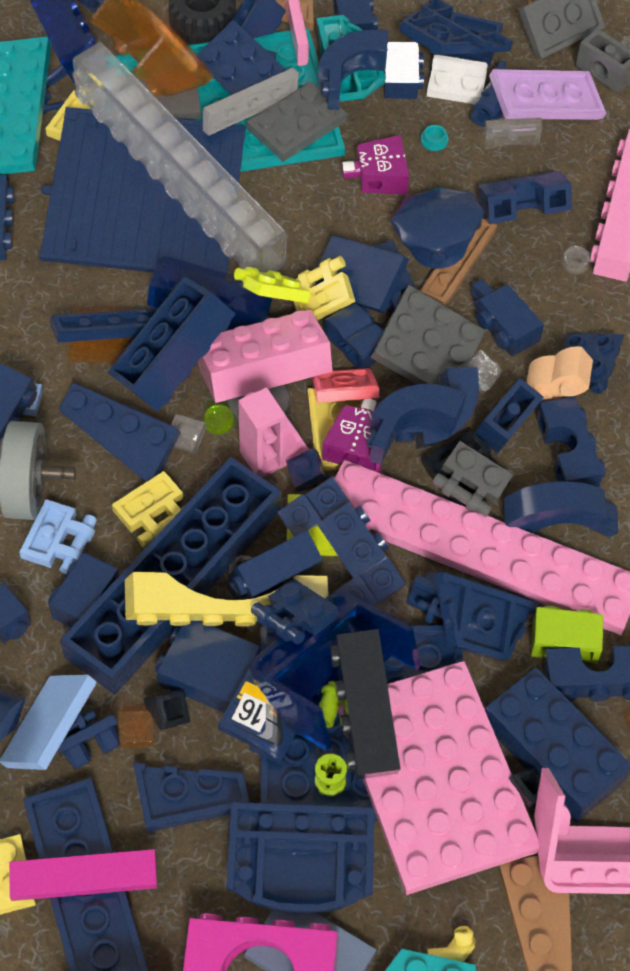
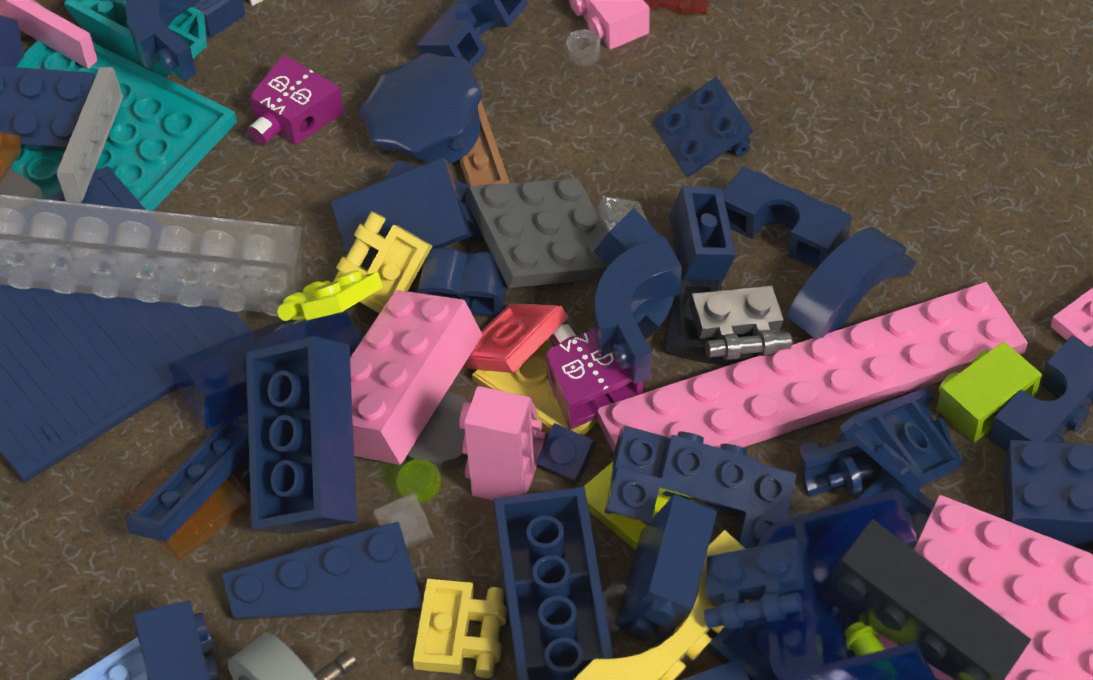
camera: 40 degrees left, 5 degrees down
(295, 121) = (154, 123): dark grey plate -> none
(434, 138) = (312, 37): teal plate -> none
(506, 317) = (583, 148): dark blue hinge -> none
(562, 374) = (707, 156): light nougat brick -> none

